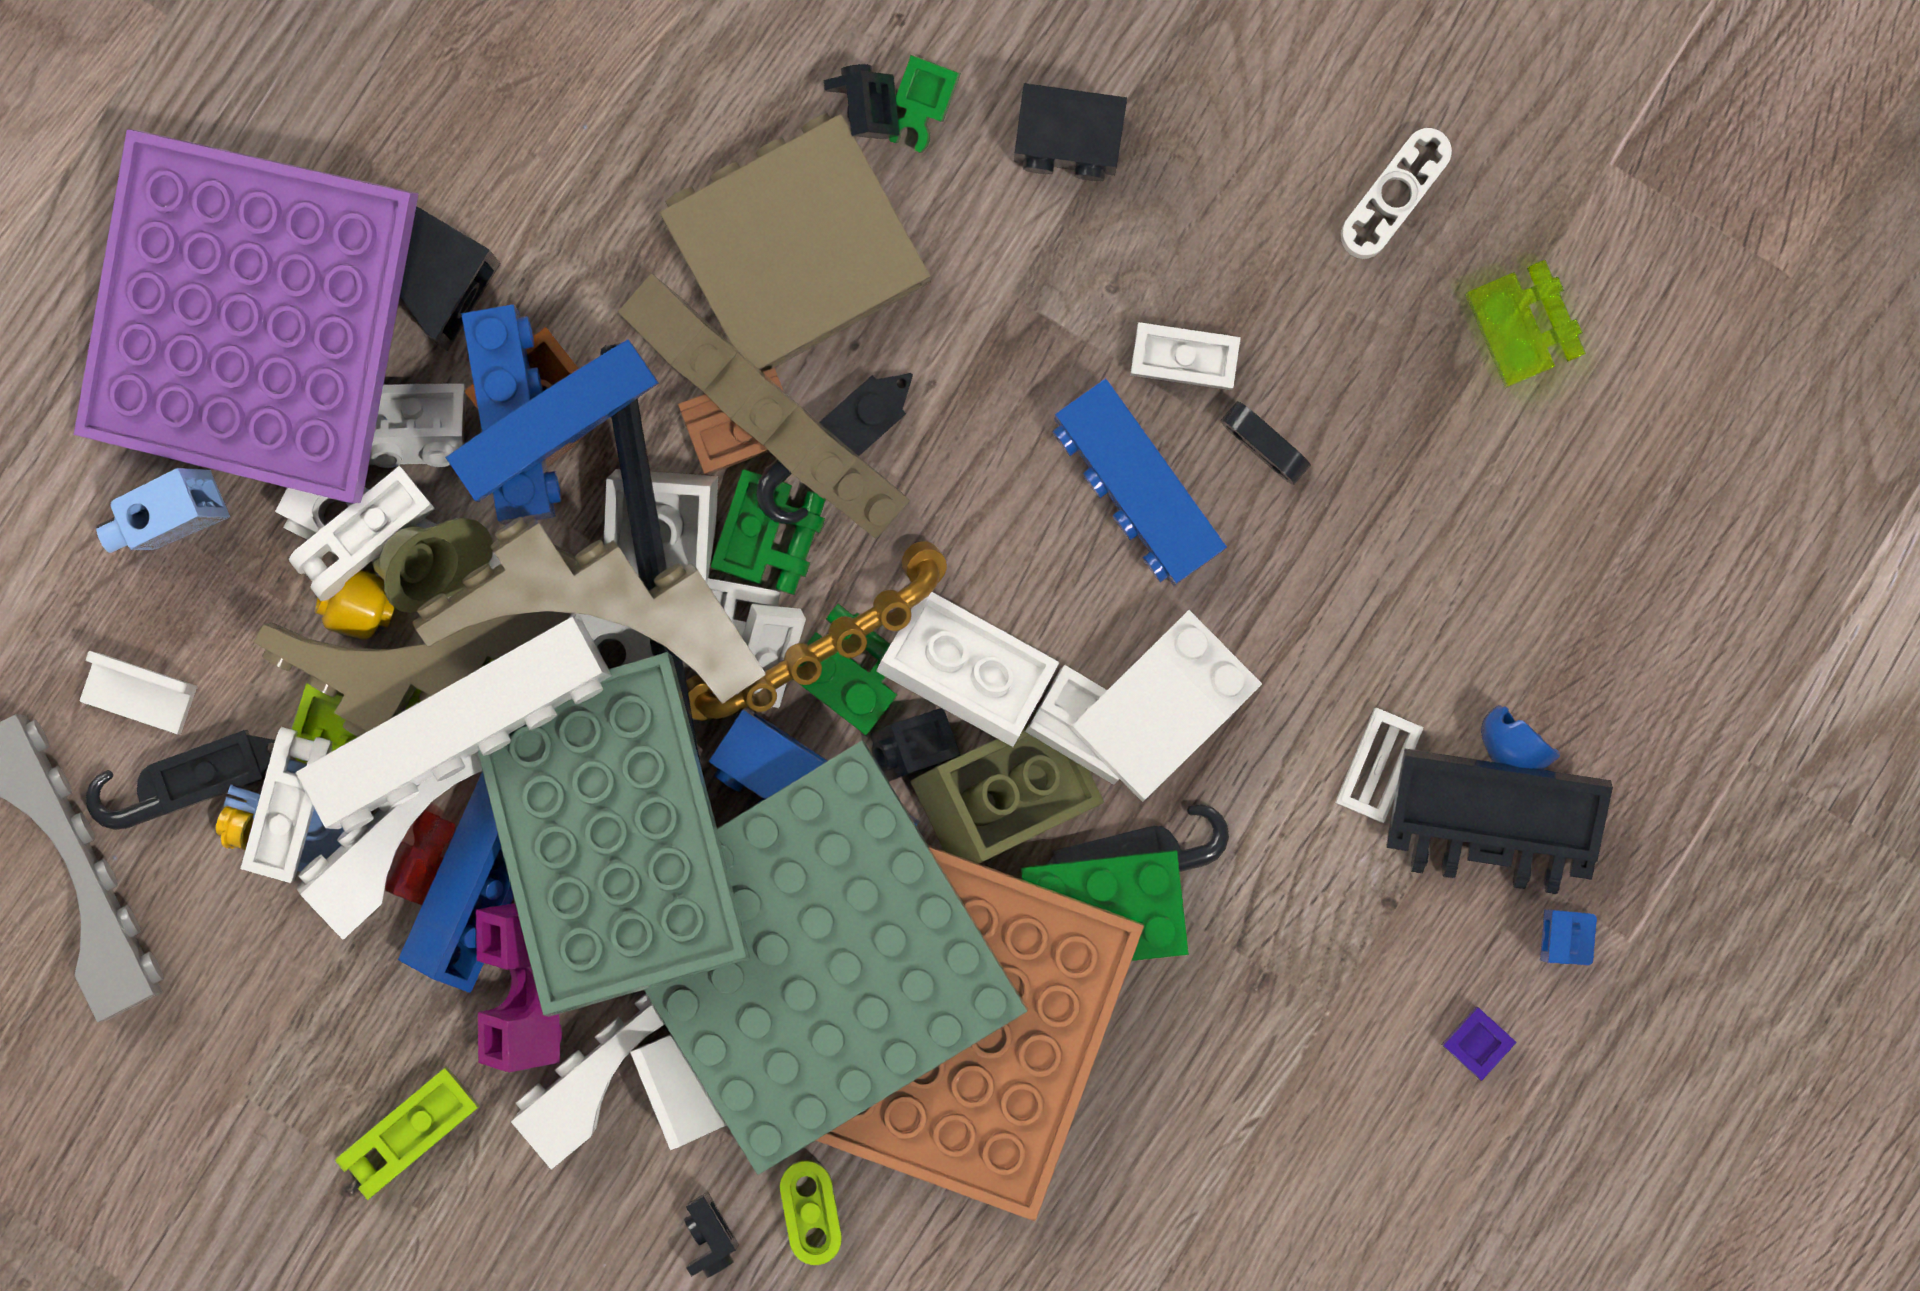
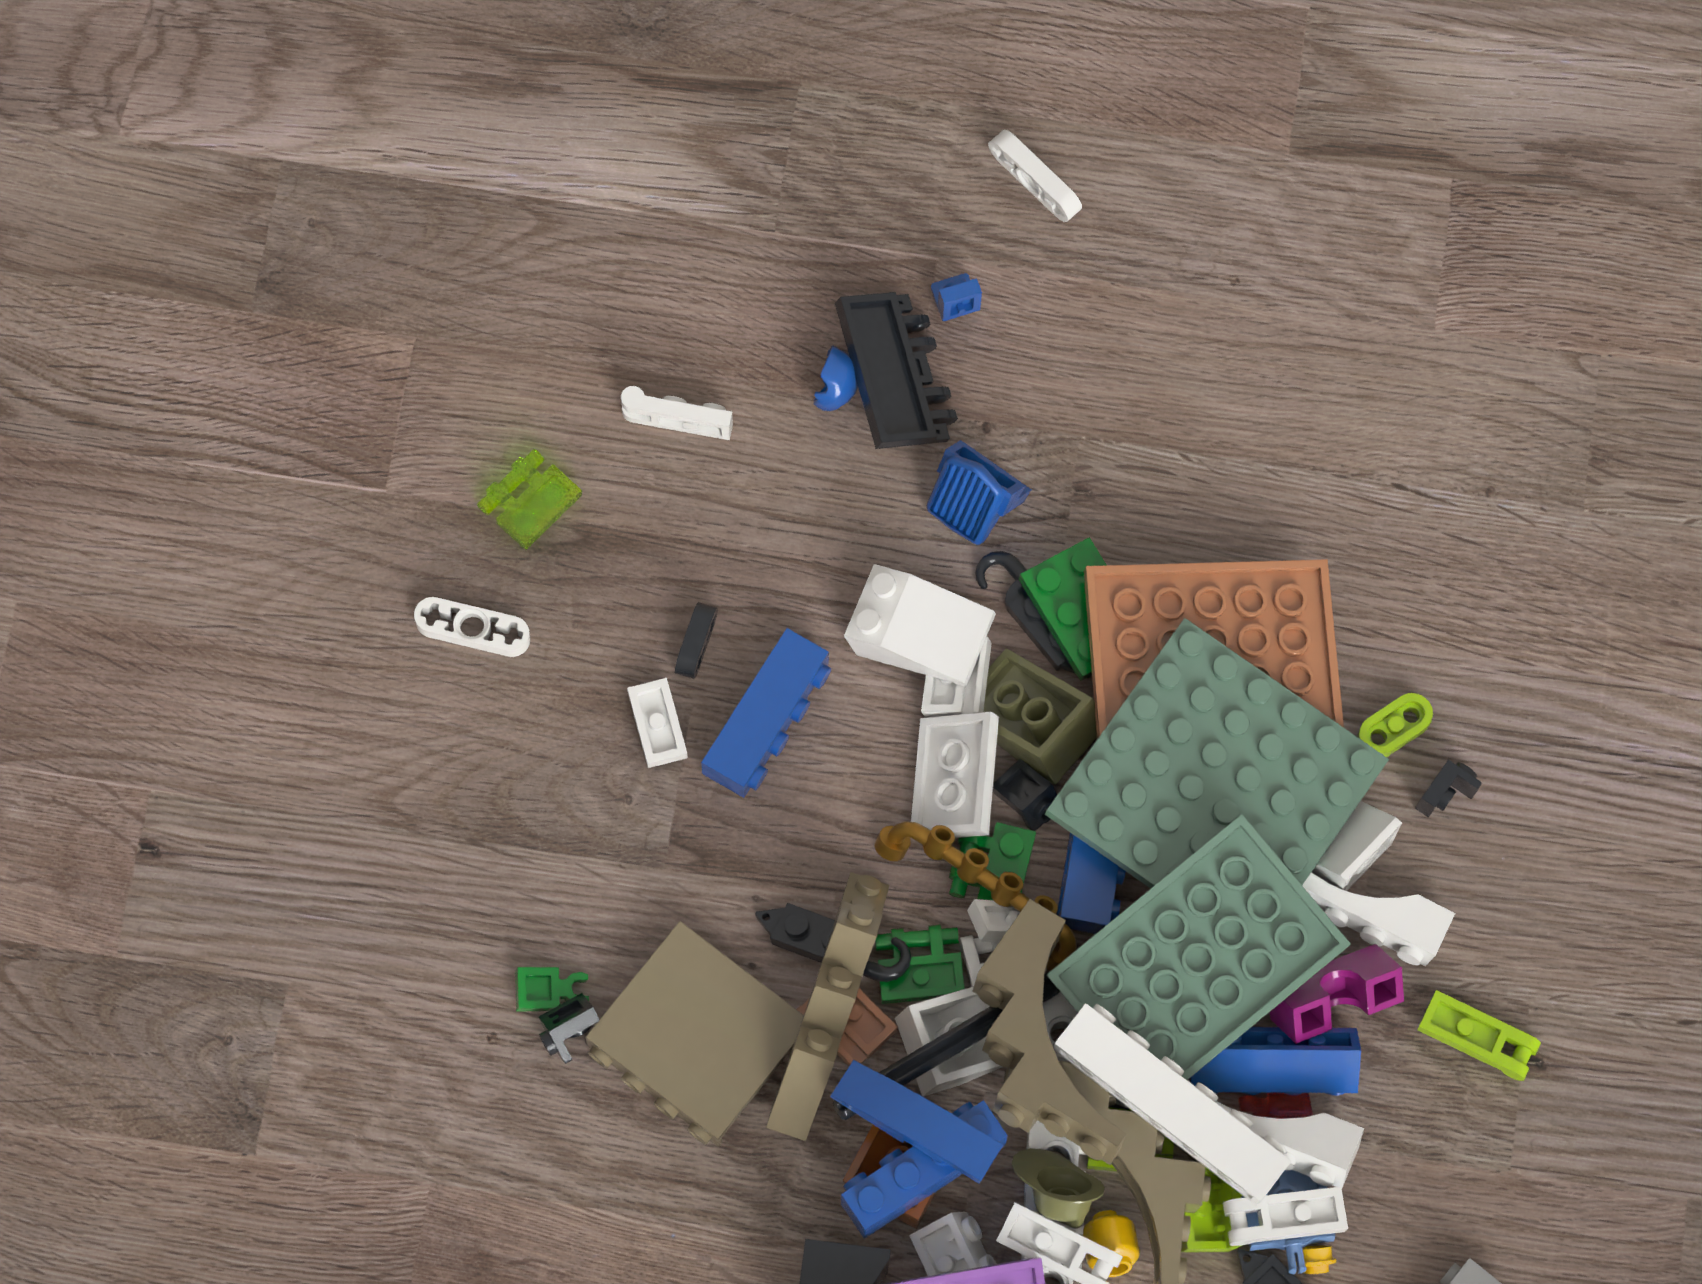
camera: 115 degrees left, 15 degrees down
(1069, 131) = (528, 868): black slope -> none
(1307, 848) = (973, 493): none -> blue piece
(1361, 805) = (892, 486): white tile -> none
(1479, 1043) = (1057, 325): dark purple plate -> none
(1559, 537) = (676, 414): none -> white plate
(1683, 1103) = (1035, 175): none -> white beam

